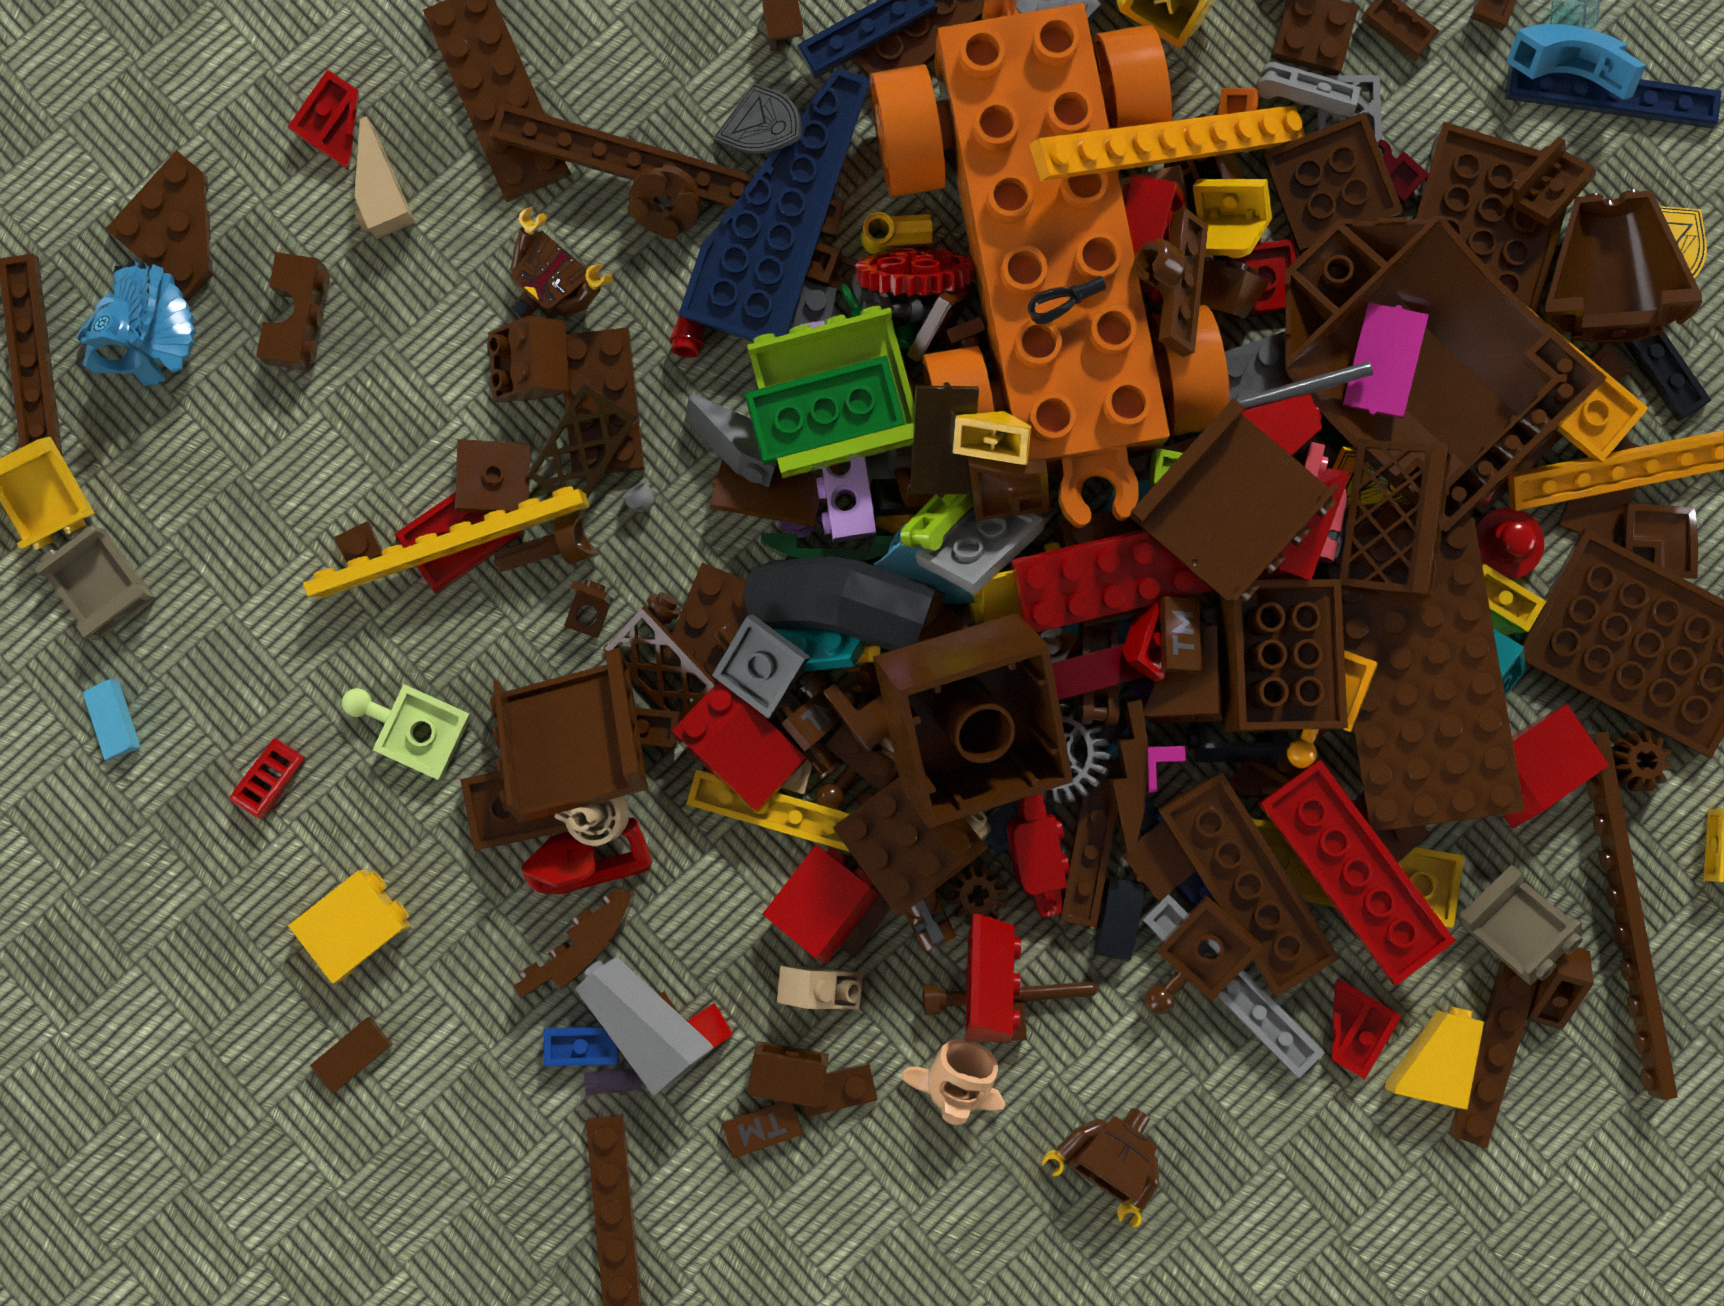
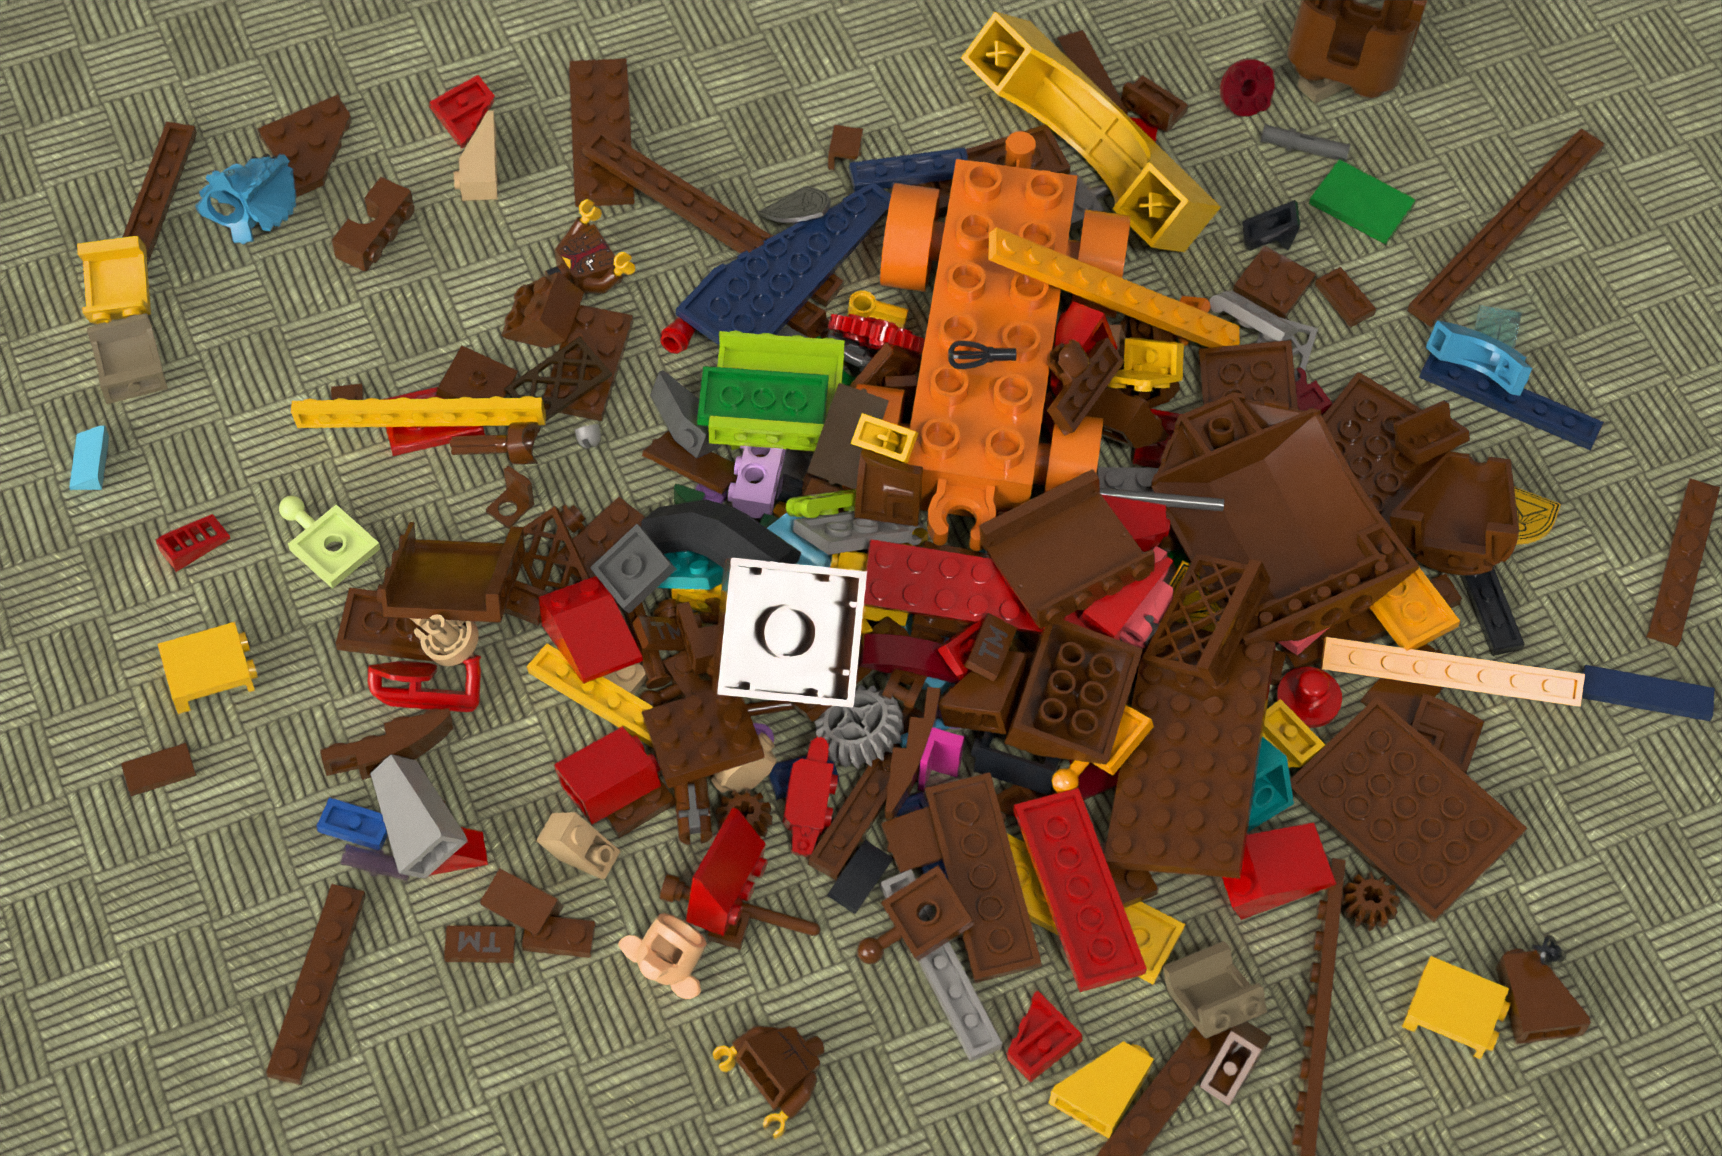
camera: 20 degrees right, 25 degrees down
(656, 217) = (683, 234): reddish brown plate -> none
(1392, 345) = (1247, 504): dark pink piece -> none

